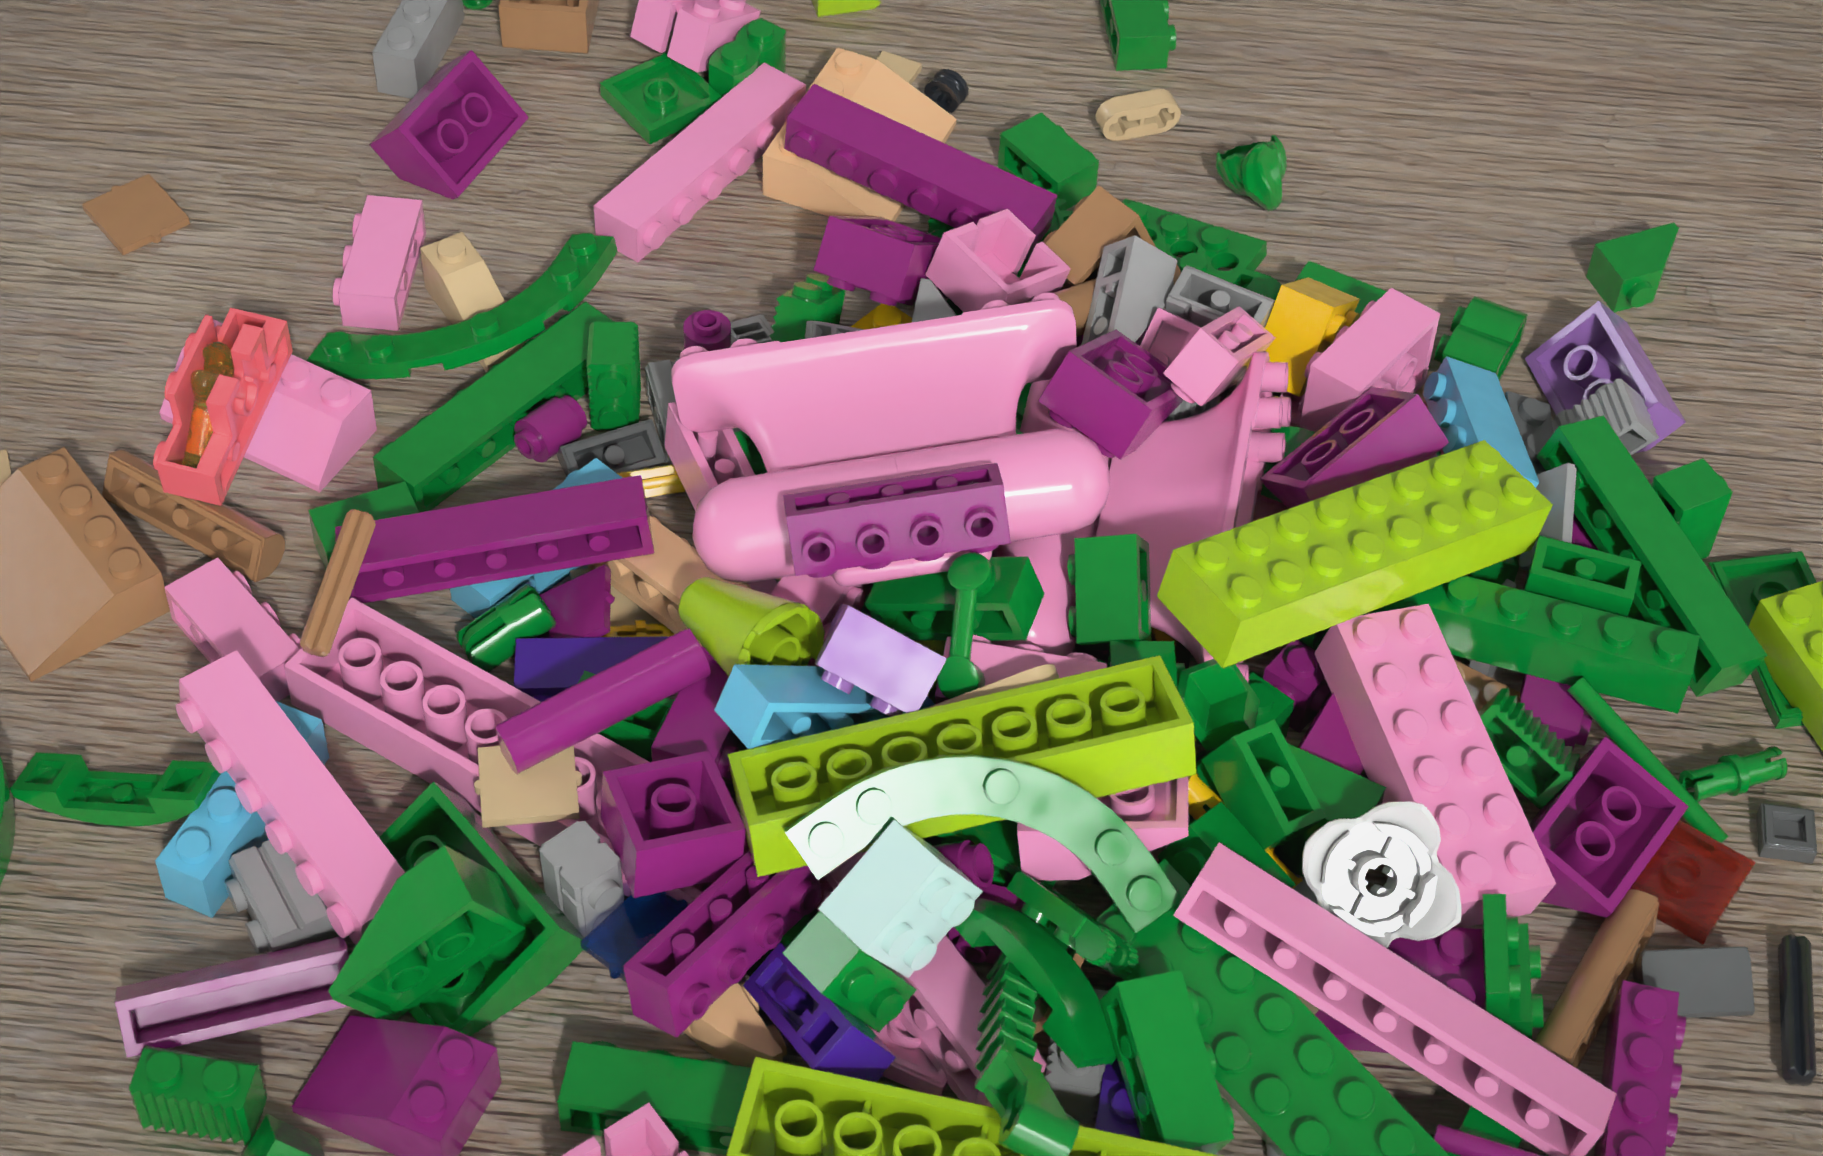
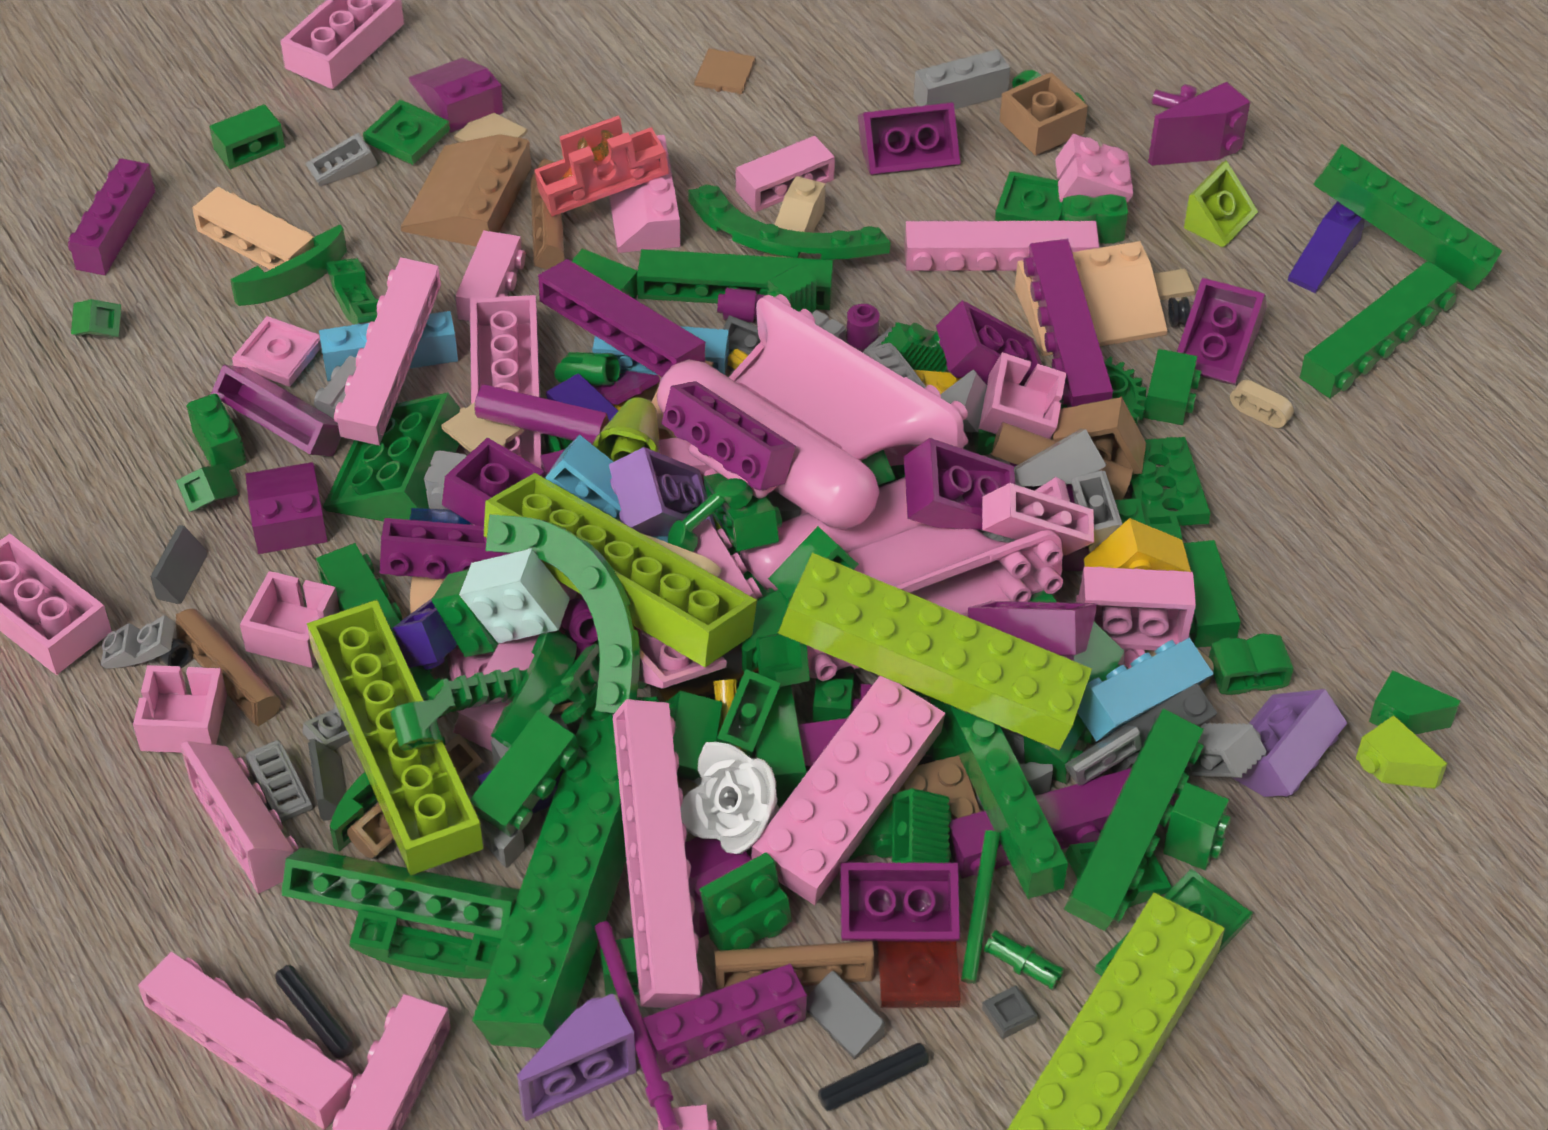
camera: 55 degrees right, 0 degrees up
(111, 938) = (278, 351): none -> bright pink plate
(337, 583) = (527, 279): medium nougat axle -> none
(426, 934) = (355, 444): green slope -> none
(1010, 72) = (1222, 329): none -> magenta slope
(1255, 171) = (1272, 480): green hair -> none
(1582, 576) = (1059, 790): green brick -> none
(1690, 313) = (1400, 756): none -> lime slope

